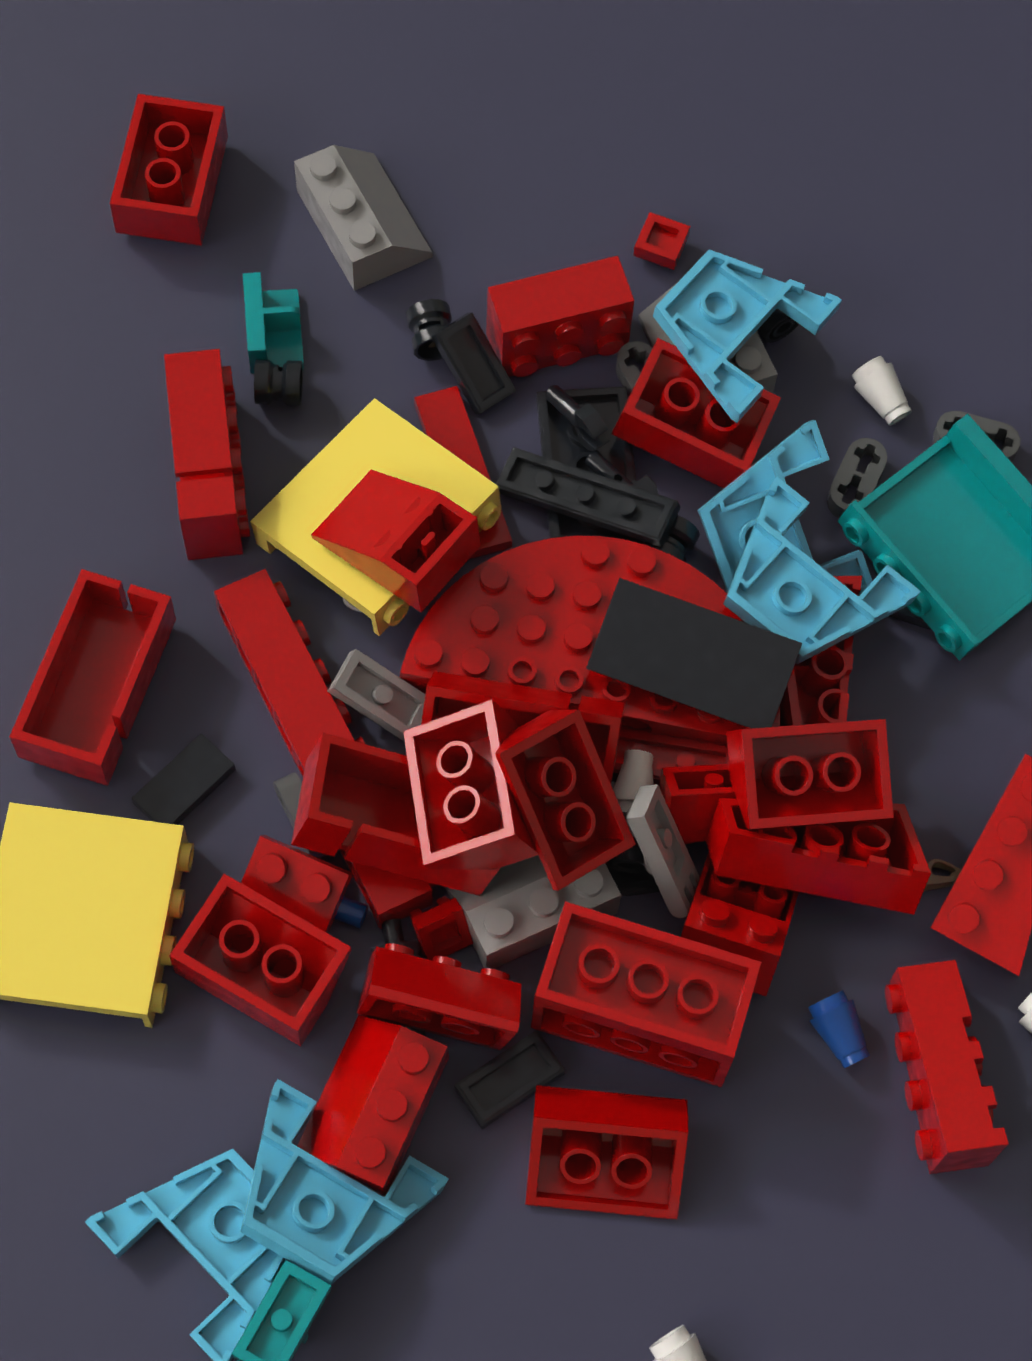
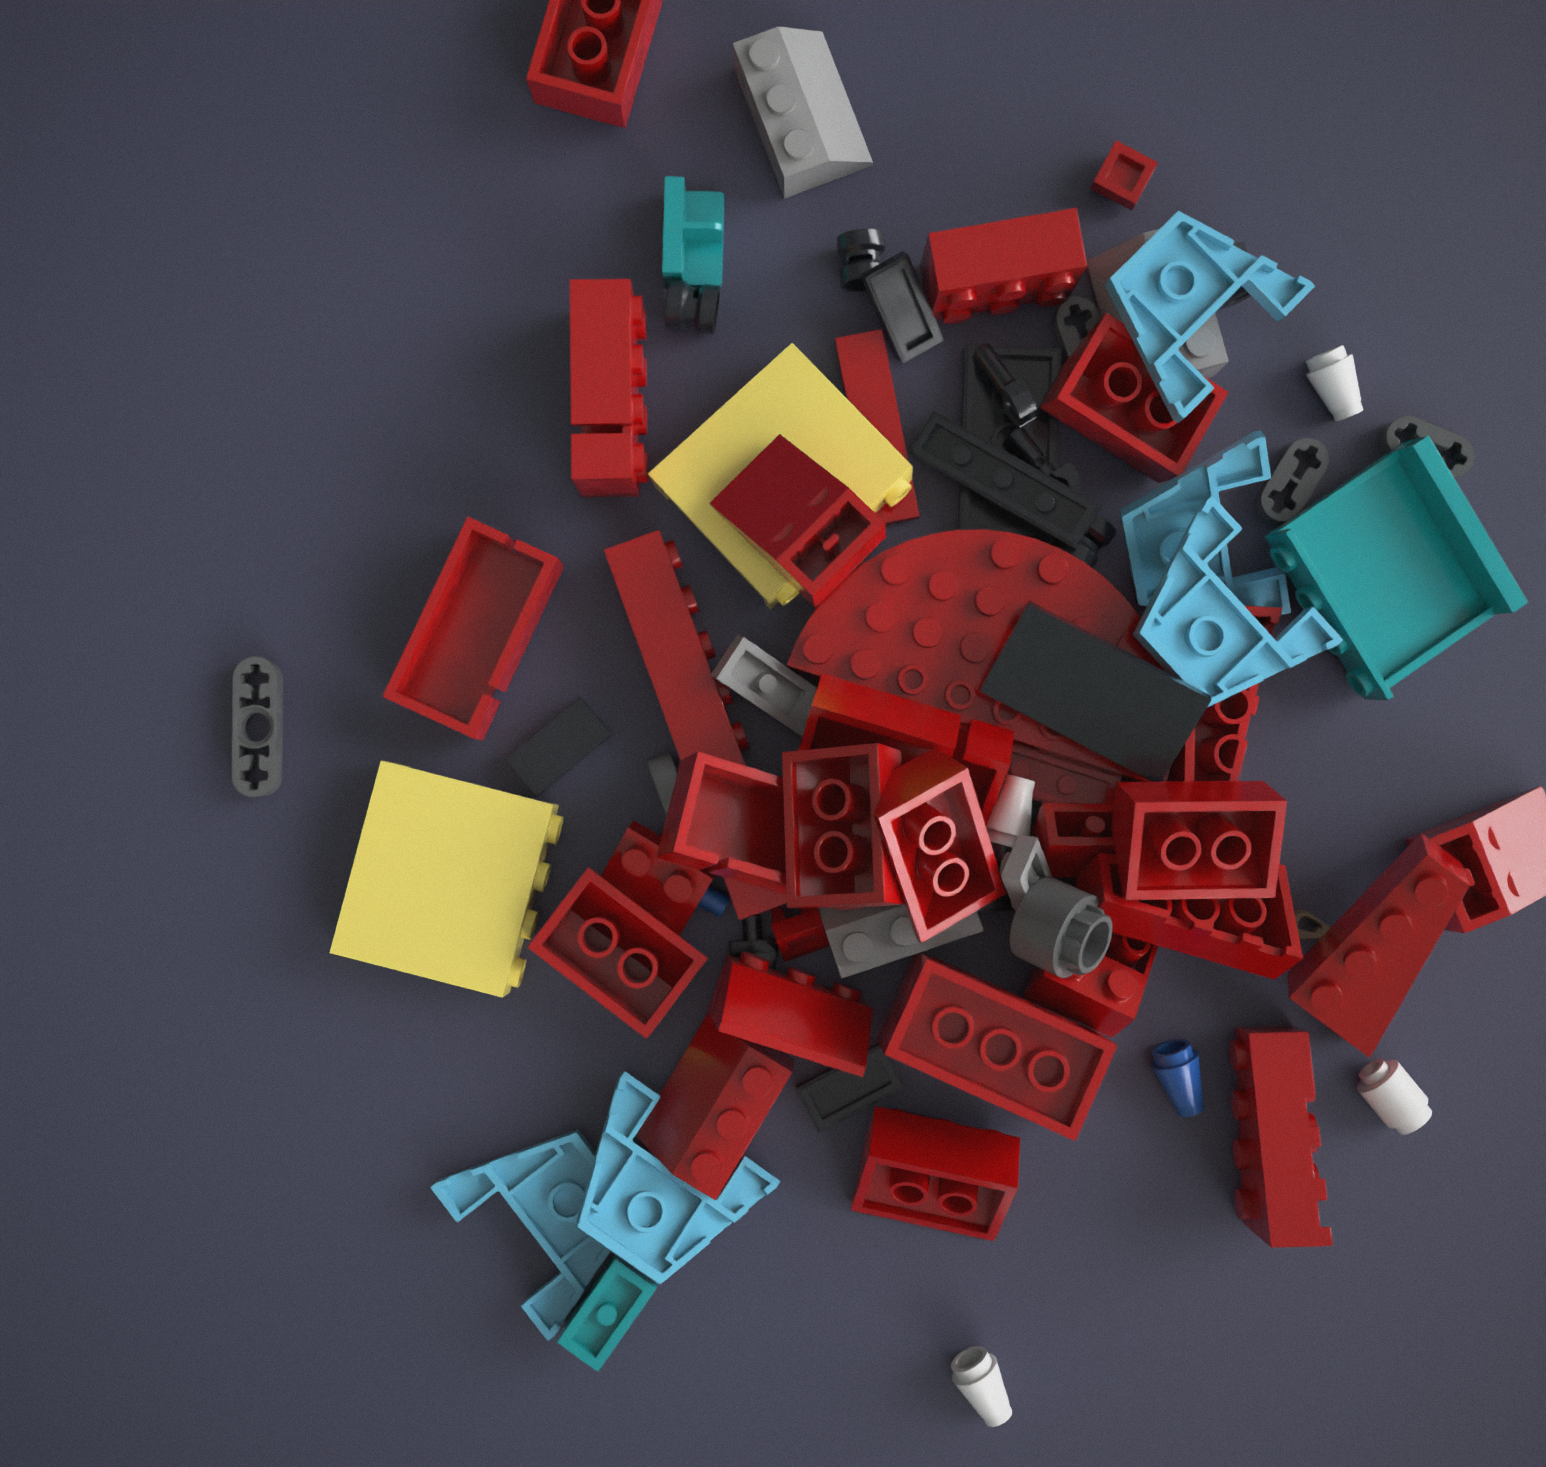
camera: 10 degrees right, 20 degrees up
(691, 869) = (1060, 929): none -> dark grey piece

